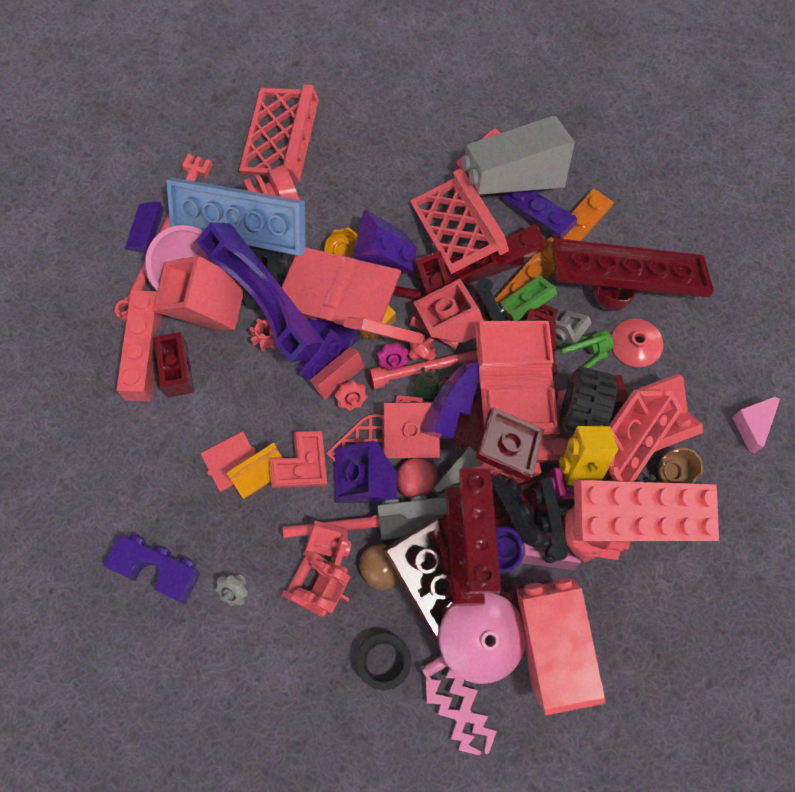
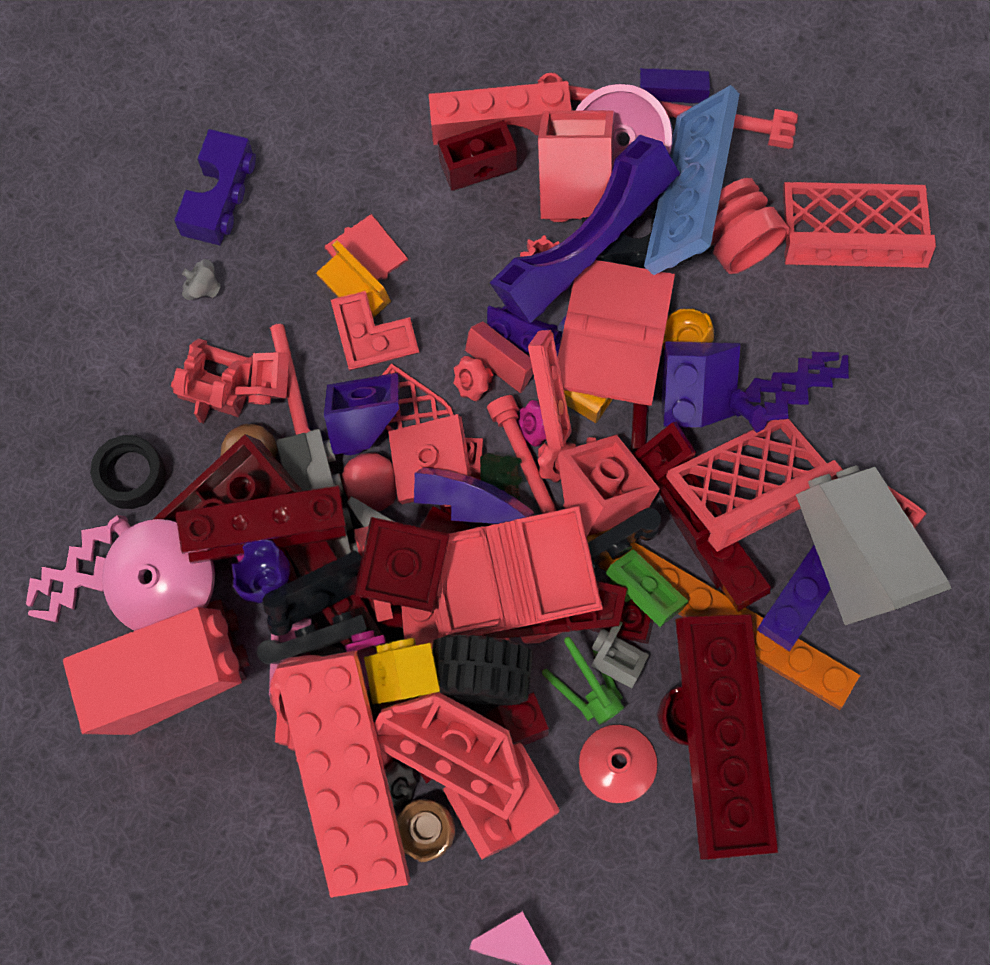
camera: 85 degrees right, 0 degrees up
(412, 198) = (803, 380): none -> dark purple piece

